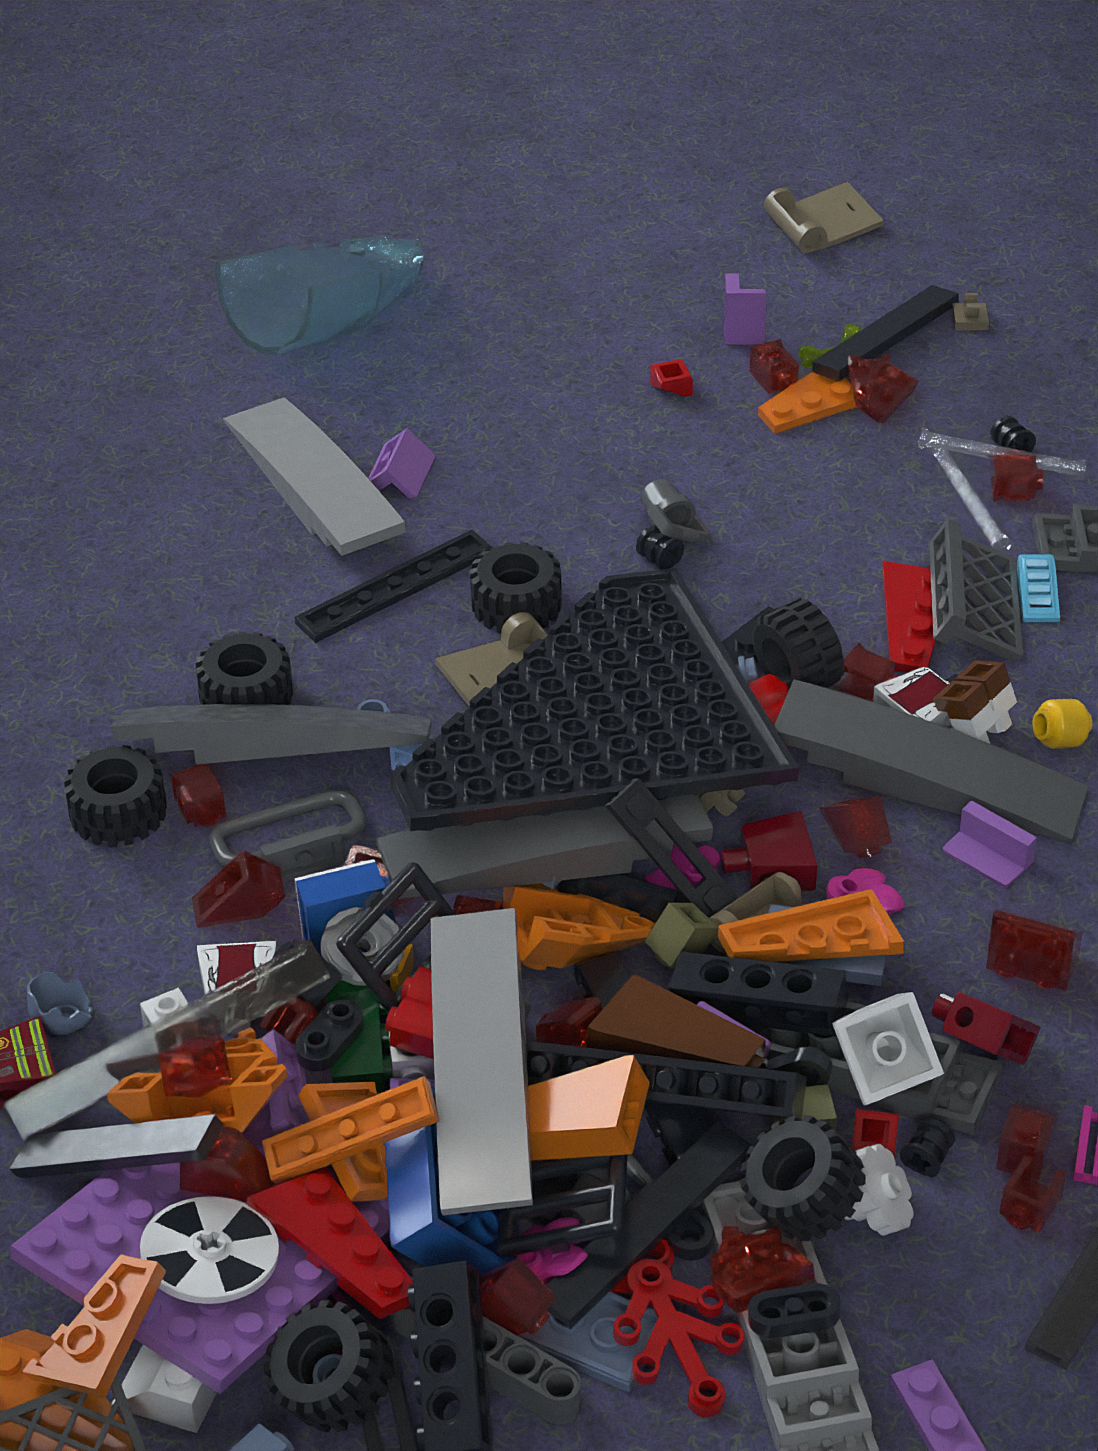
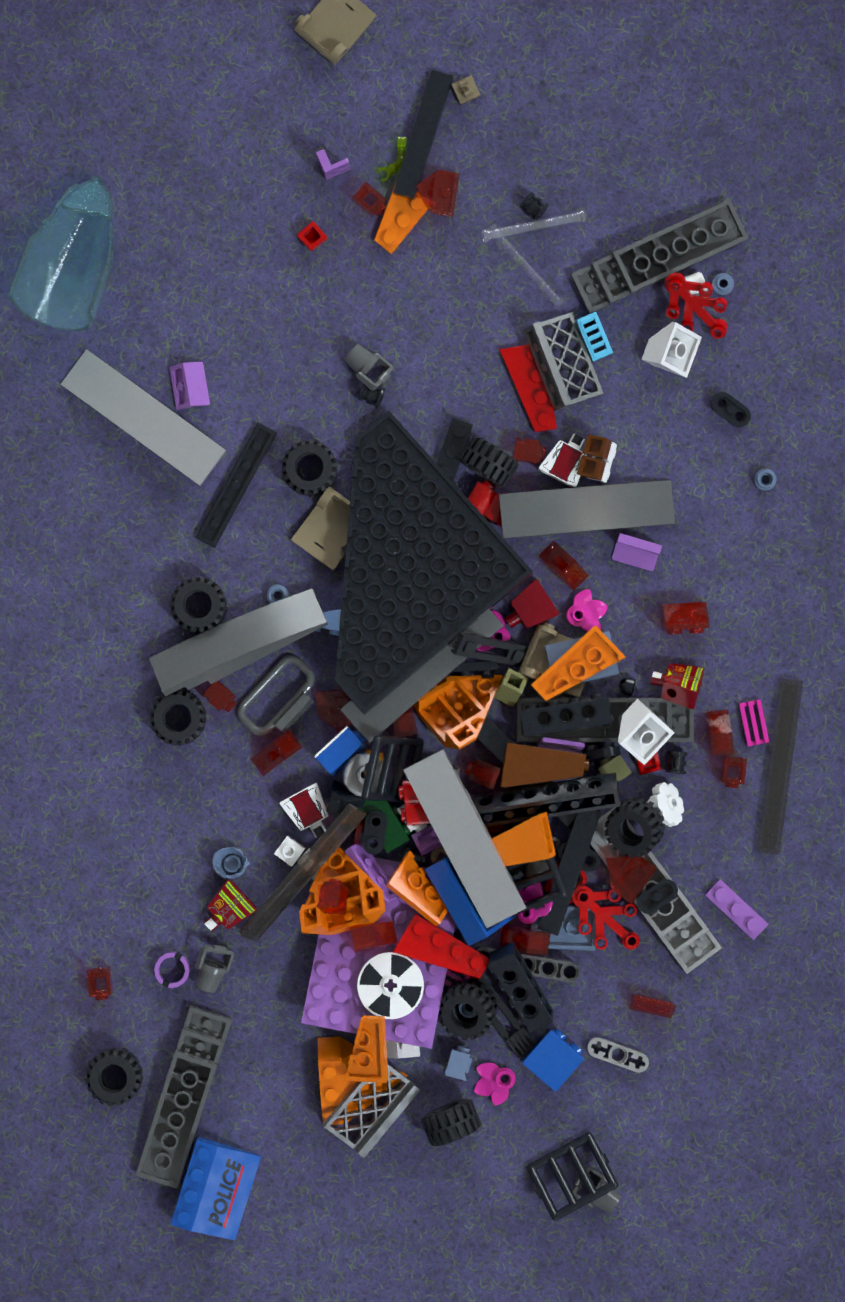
camera: 25 degrees left, 45 degrees up
(118, 1146) = (317, 949): tile -> none
(350, 1130) = (424, 901): orange tile -> none
(748, 668) = (463, 479): sand blue plate -> none
(1016, 477) = (549, 245): clear red window -> none
(1062, 723) = (644, 444): yellow head -> none

